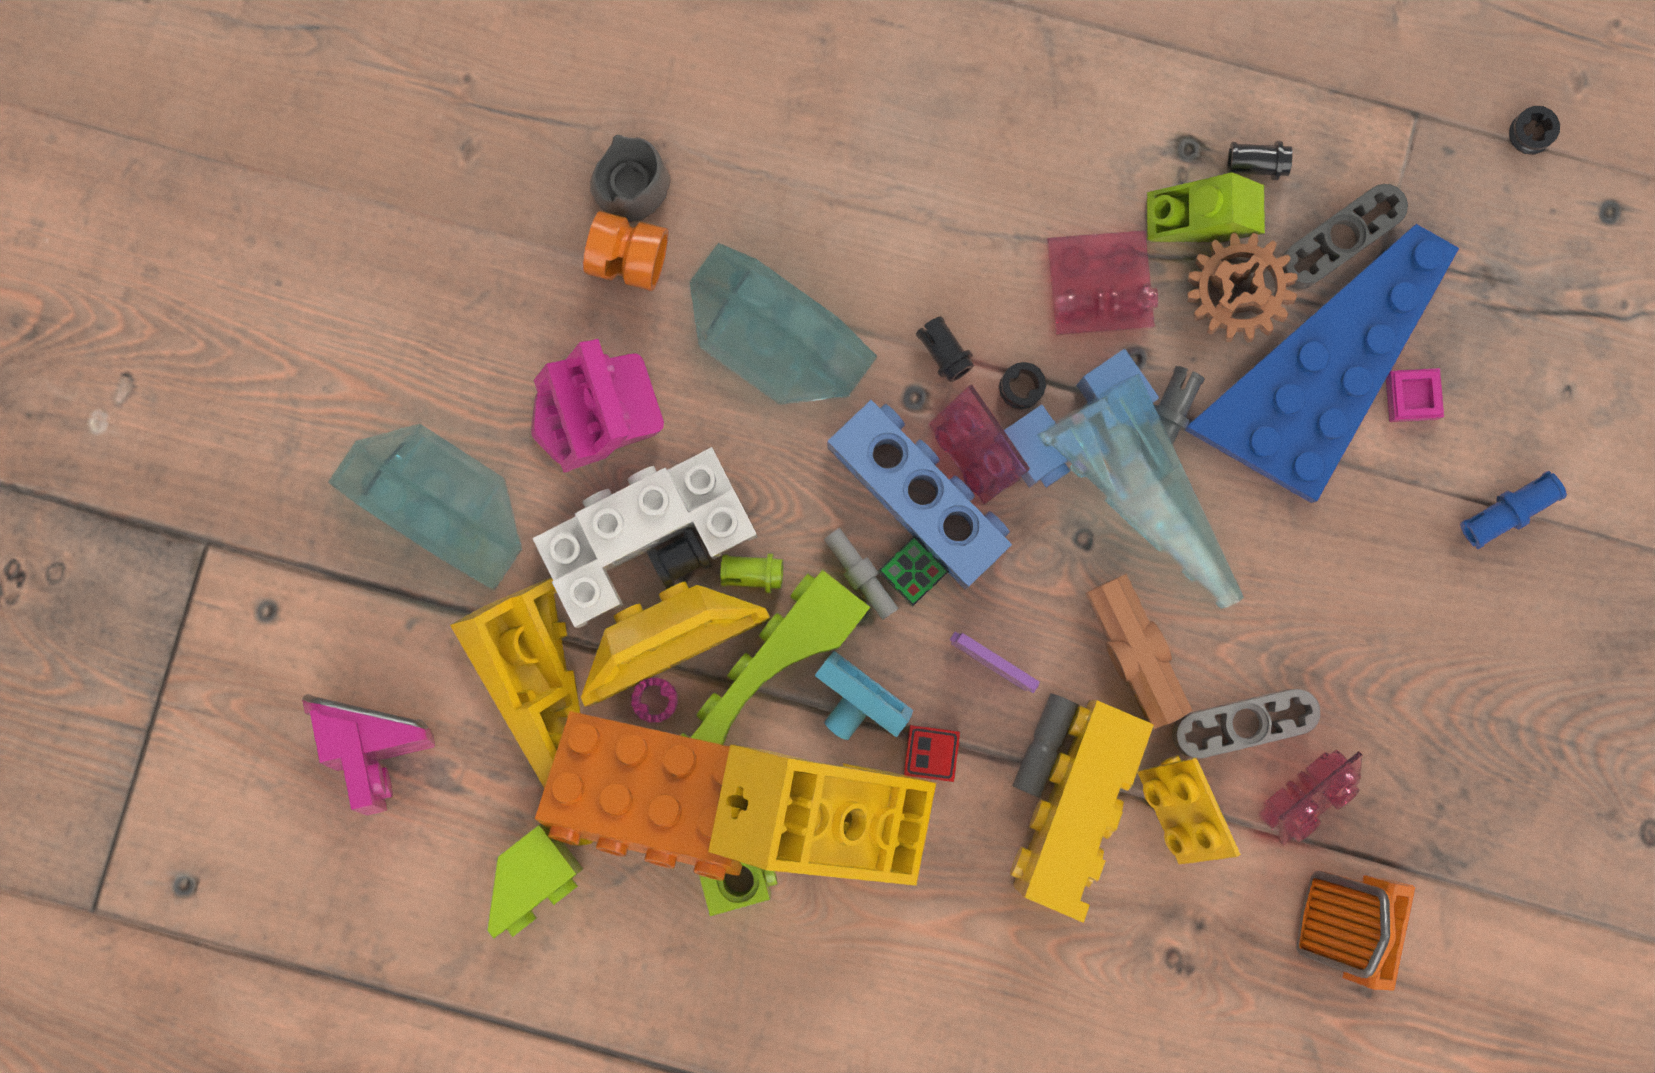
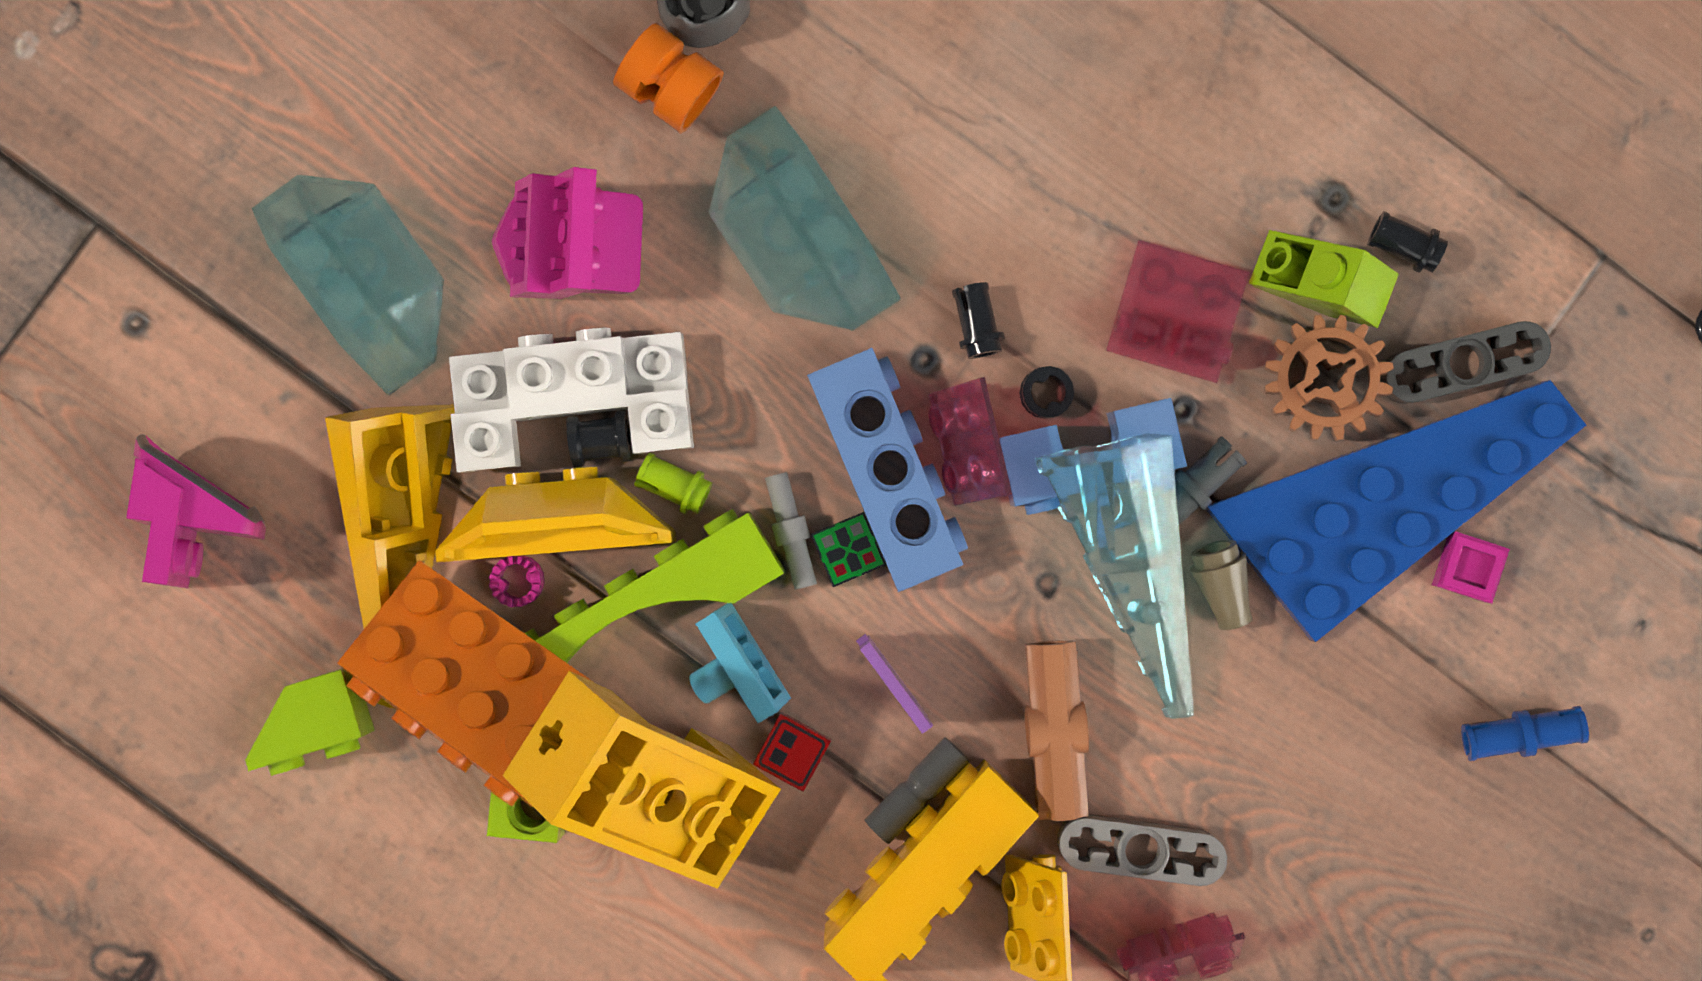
camera: 25 degrees right, 5 degrees up
(1224, 481) = (1223, 580): none -> dark tan cone

